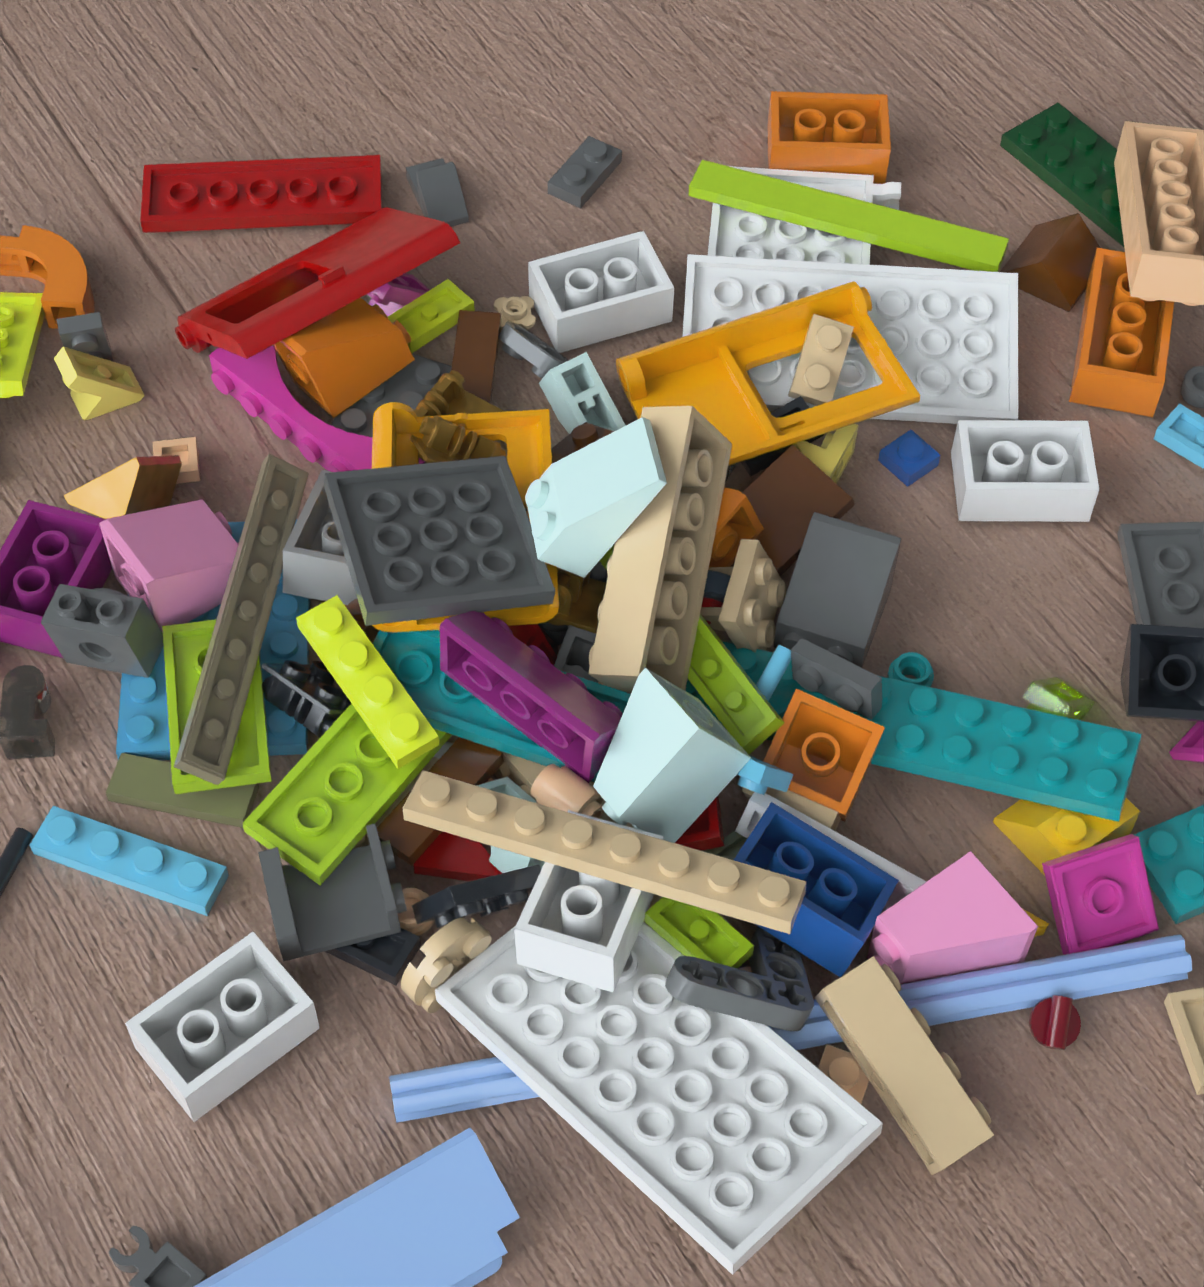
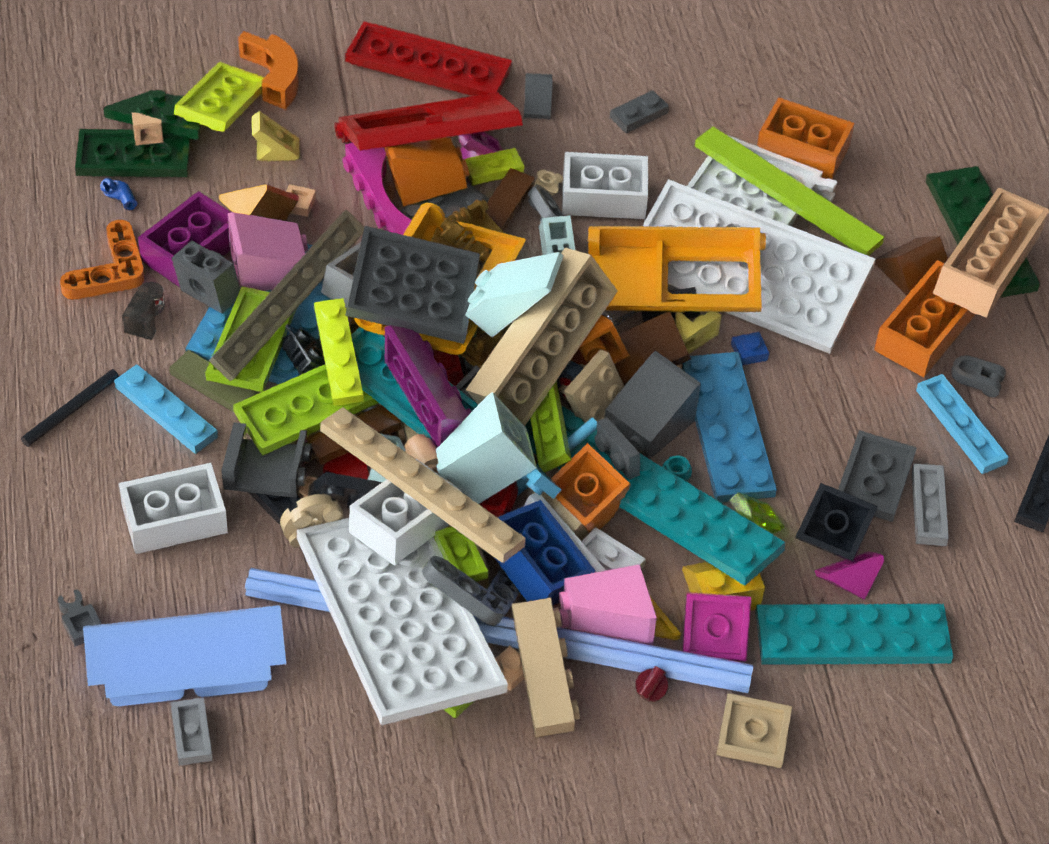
camera: 20 degrees right, 5 degrees down
(85, 334) = (277, 109): dark grey plate -> none
(821, 360) = (718, 269): tan plate -> none
(898, 840) = (610, 552): none -> white plate
(952, 590) = (729, 428): none -> dark azure plate
(1024, 470) = (813, 377): white brick -> none

